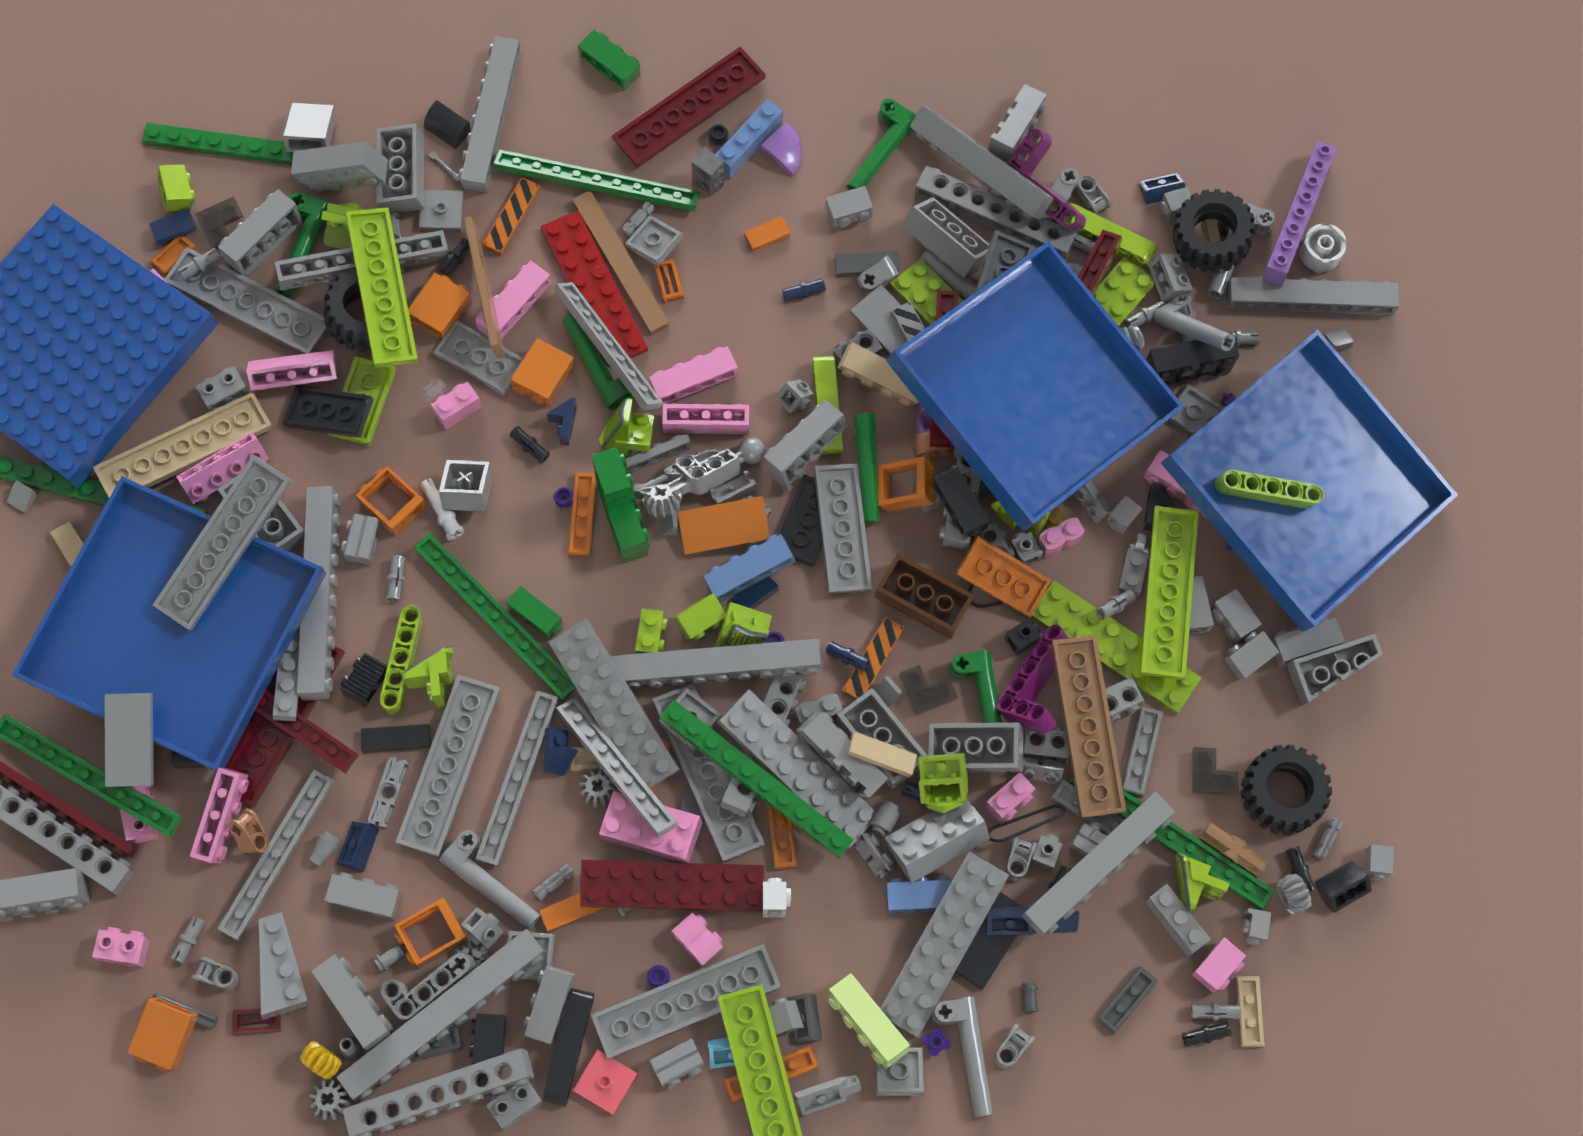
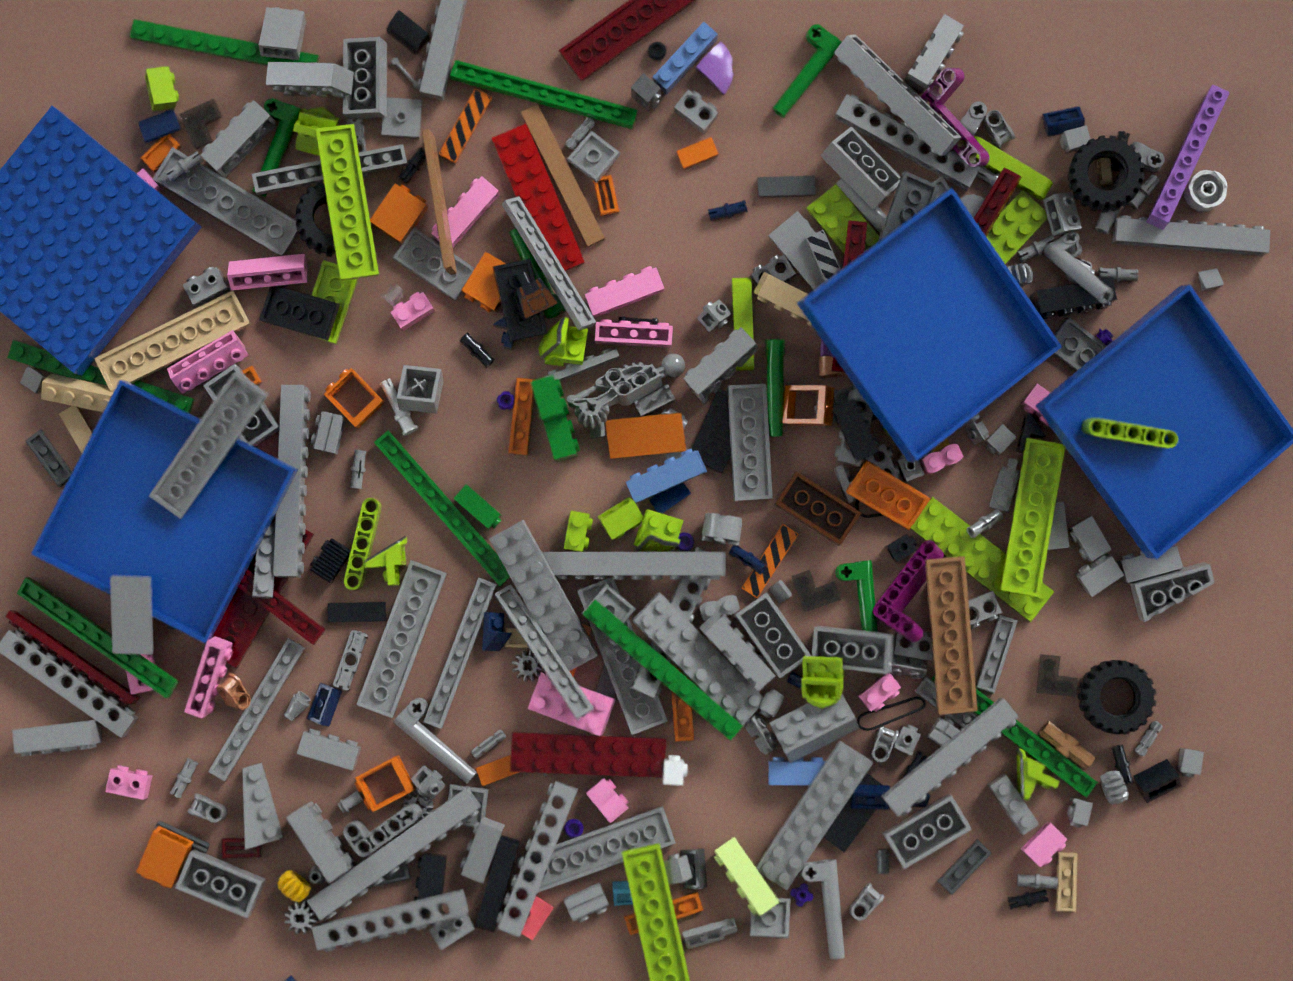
camera: 10 degrees right, 15 degrees up
(35, 579) = (49, 457): none -> dark grey tile
(67, 505) = (75, 392): none -> tan brick
(231, 1061) = (220, 883): none -> light grey brick
(576, 386) = (506, 283): none -> black tile
(591, 379) = (532, 296): none -> torso
(593, 1092) = (515, 925): none -> light grey brick
(760, 194) = (692, 115): none -> light grey brick
(816, 621) = (721, 529): none -> light grey brick
(849, 207) = (773, 132): light grey brick -> none
(879, 271) = (796, 199): light grey piece -> none
(882, 754) = (771, 655): tan tile -> none
(950, 562) = (843, 476): none -> light grey slope
(1078, 956) = (926, 831): none -> light grey brick
(1256, 254) = (1144, 191): none -> light grey axle

